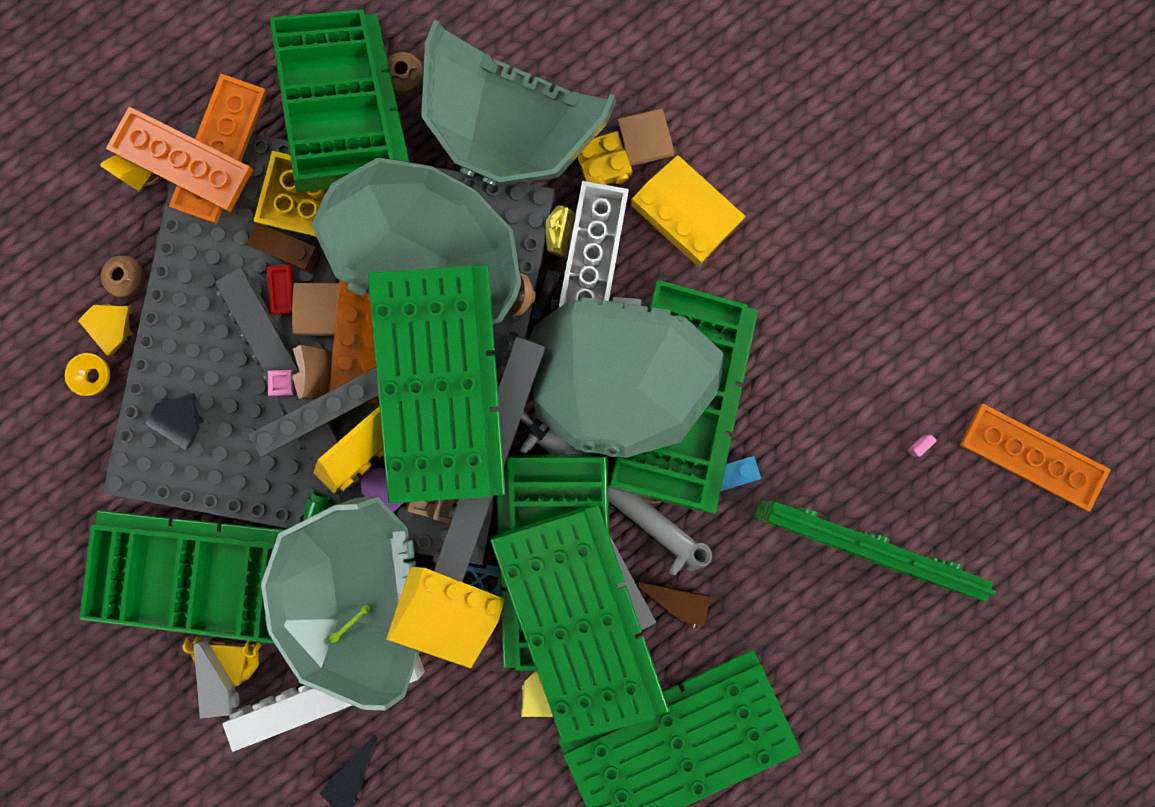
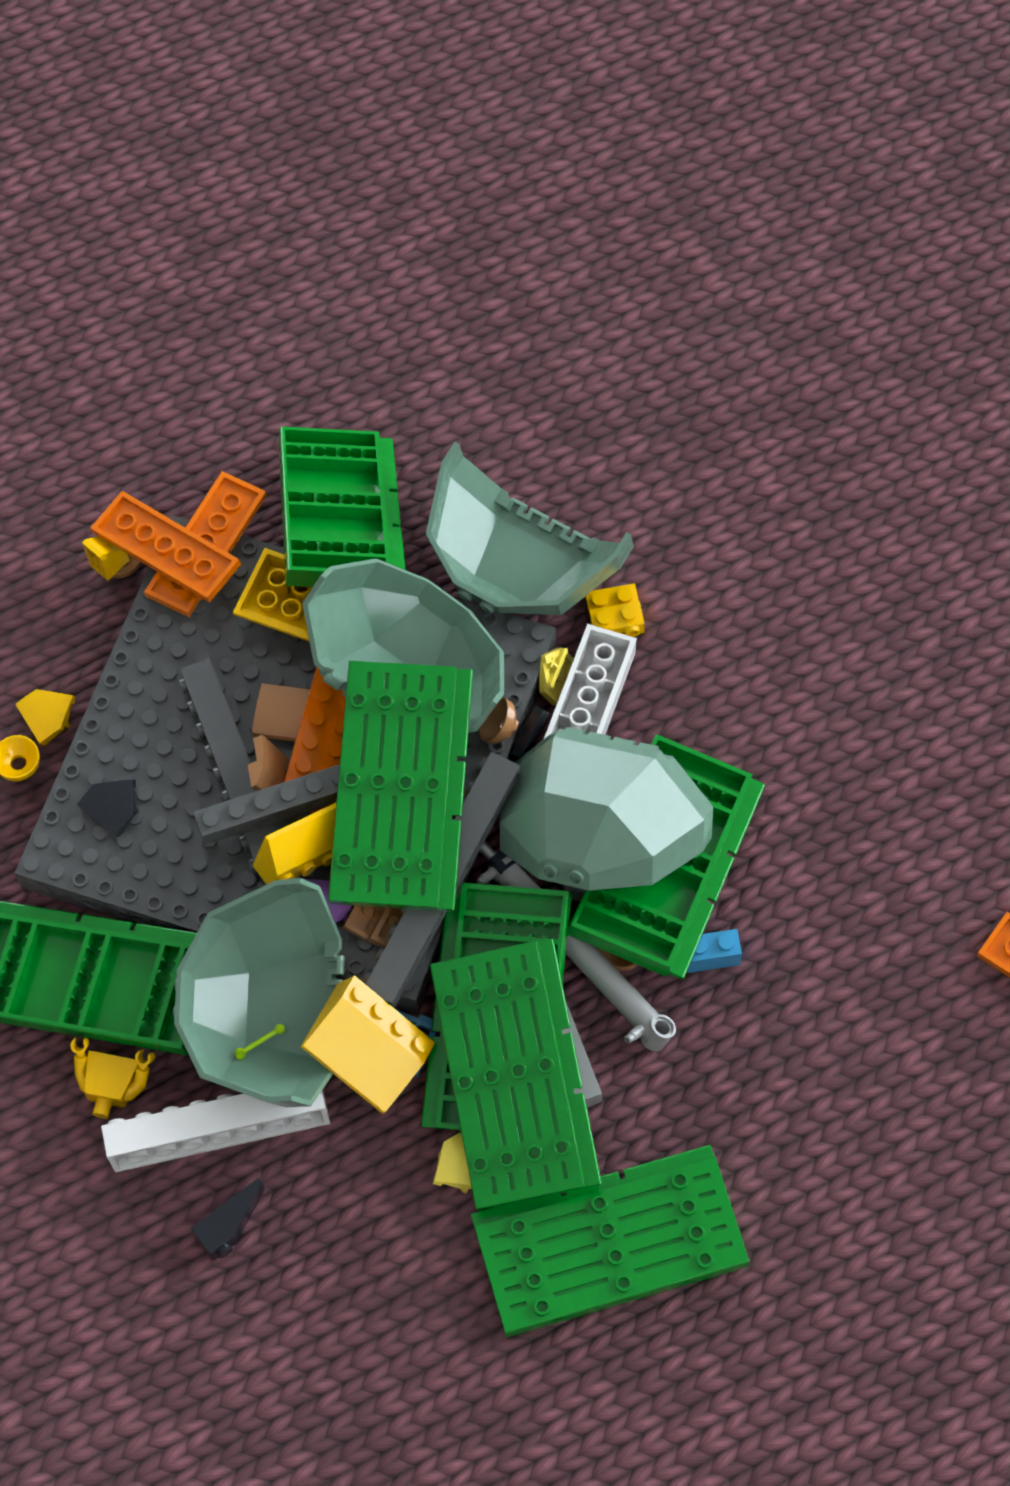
camera: 10 degrees right, 20 degrees down
(130, 283) = (75, 675): medium nougat piece -> none
(214, 685) = (97, 1098): light grey slope -> none
(280, 289) = (245, 689): red tile -> none
(281, 383) = (232, 775): bright pink tile -> none
(284, 248) = (258, 648): reddish brown slope -> none
(412, 79) = (417, 508): medium nougat piece -> none
(646, 137) = (665, 593): medium nougat slope -> none
(683, 604) = (634, 1082): reddish brown slope -> none
(687, 210) = (699, 673): yellow slope -> none
(874, 549) = (849, 1033): green door -> none
(921, 445) = (932, 948): bright pink tile -> none

